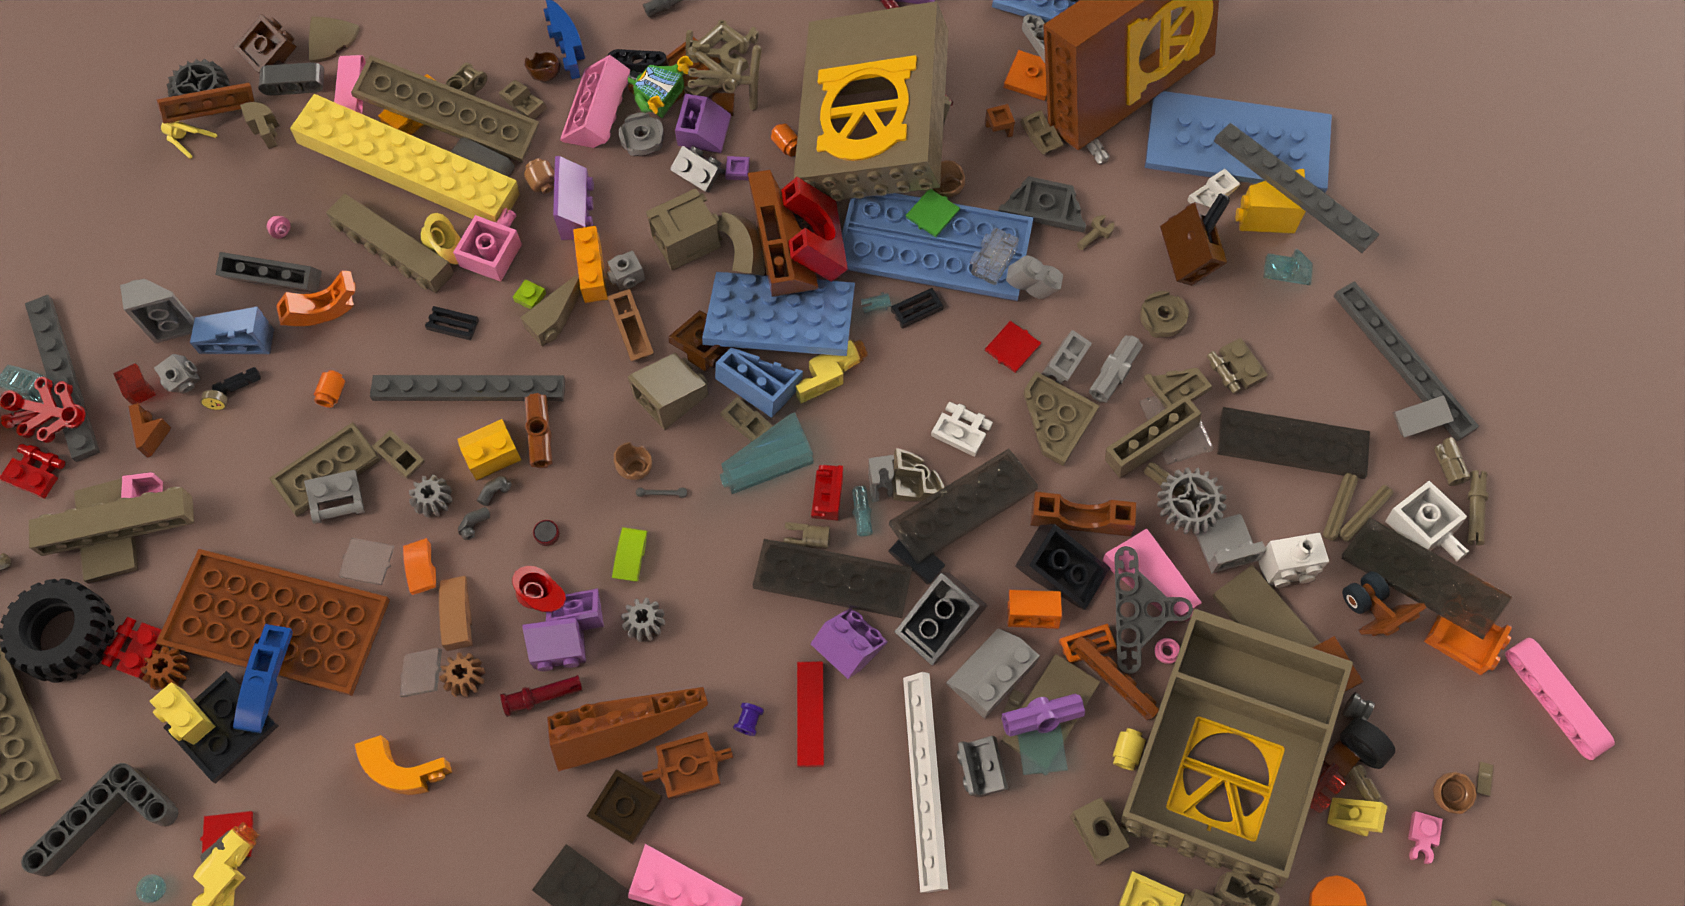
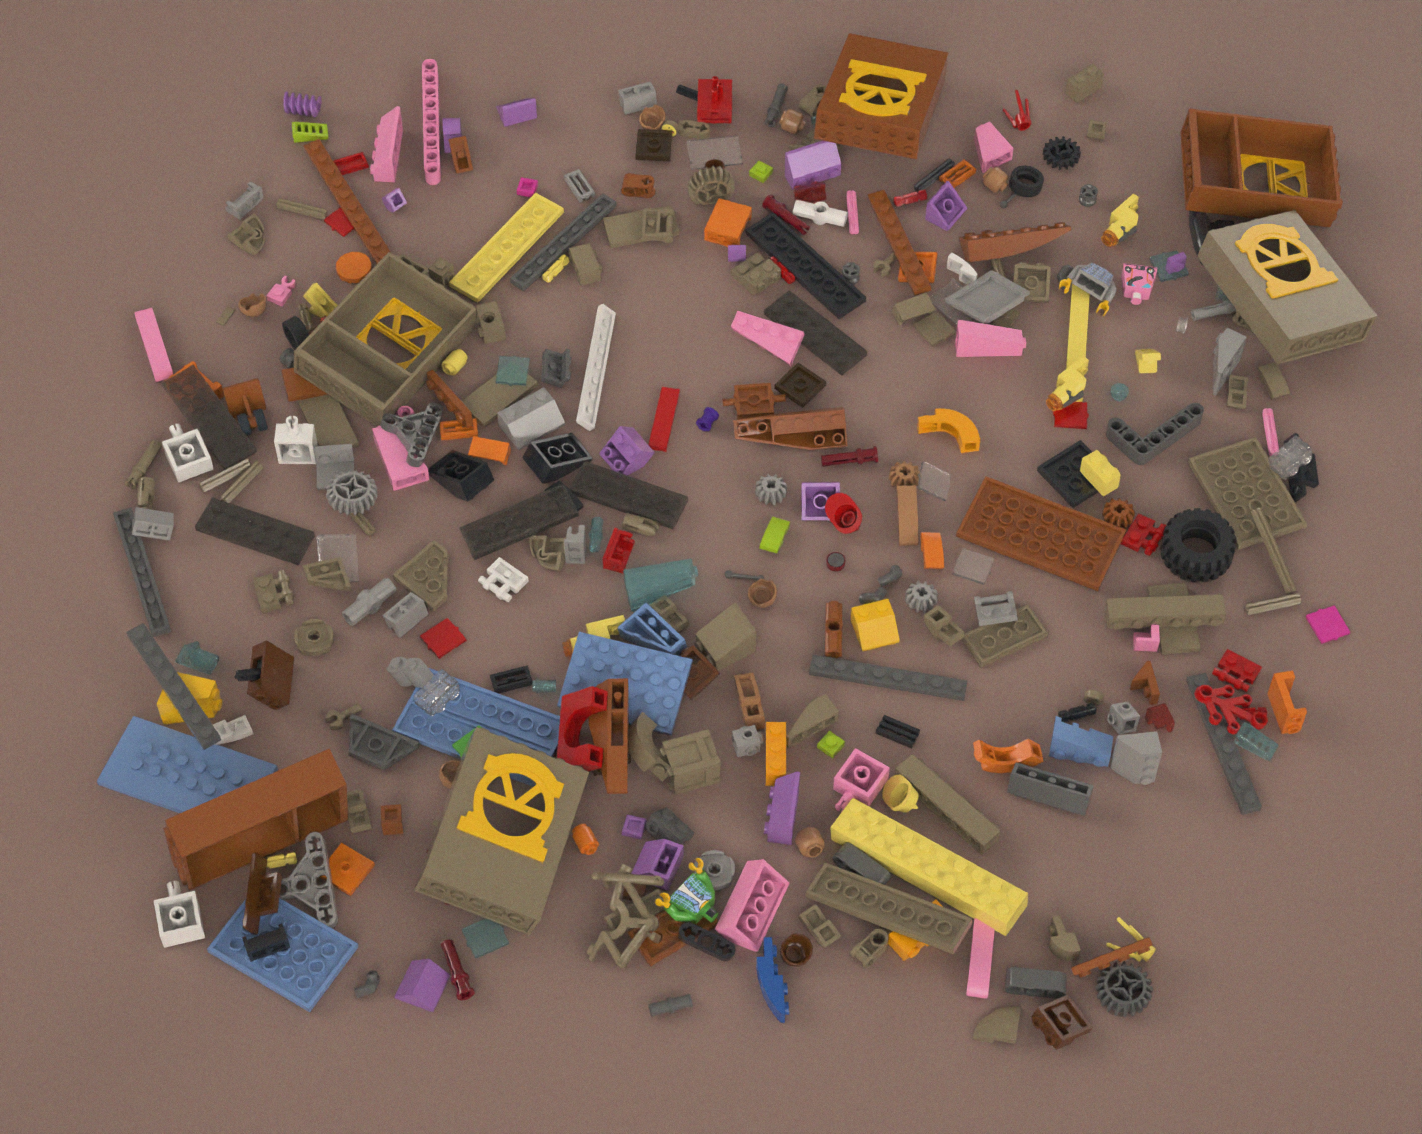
camera: 170 degrees left, 10 degrees down
(260, 678) = (1043, 488): blue slope -> none
(278, 226) = (1044, 836): bright pink plate -> none
(329, 389) = (999, 690): orange brick -> none
(555, 644) = (844, 475): medium lavender slope -> none
(1043, 714) = (506, 382): medium lavender piece -> none
(1110, 517) = (414, 496): dark orange arch -> none
(1152, 436) = (363, 539): dark tan brick -> none

